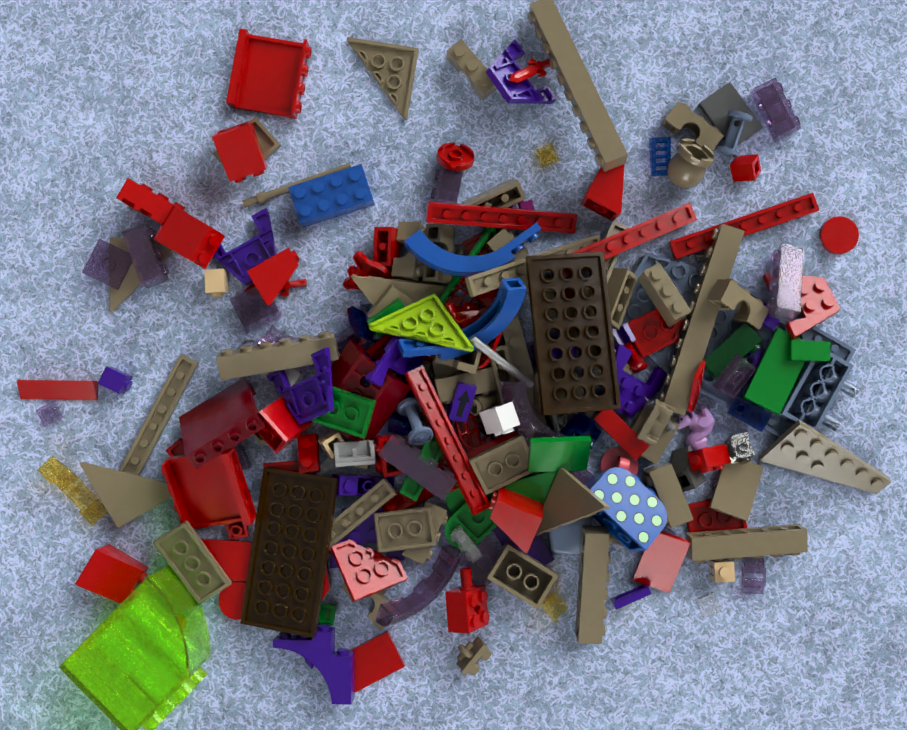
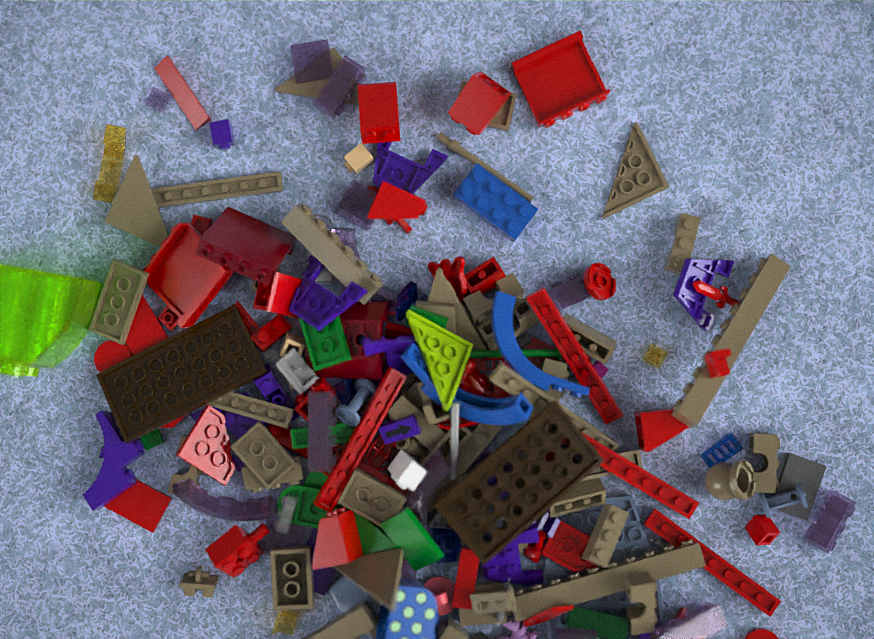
camera: 60 degrees right, 0 degrees up
(112, 574) = (64, 244): red slope -> none
(145, 201) = (383, 57): red wedge -> none
(588, 104) = (717, 363): none -> red panel

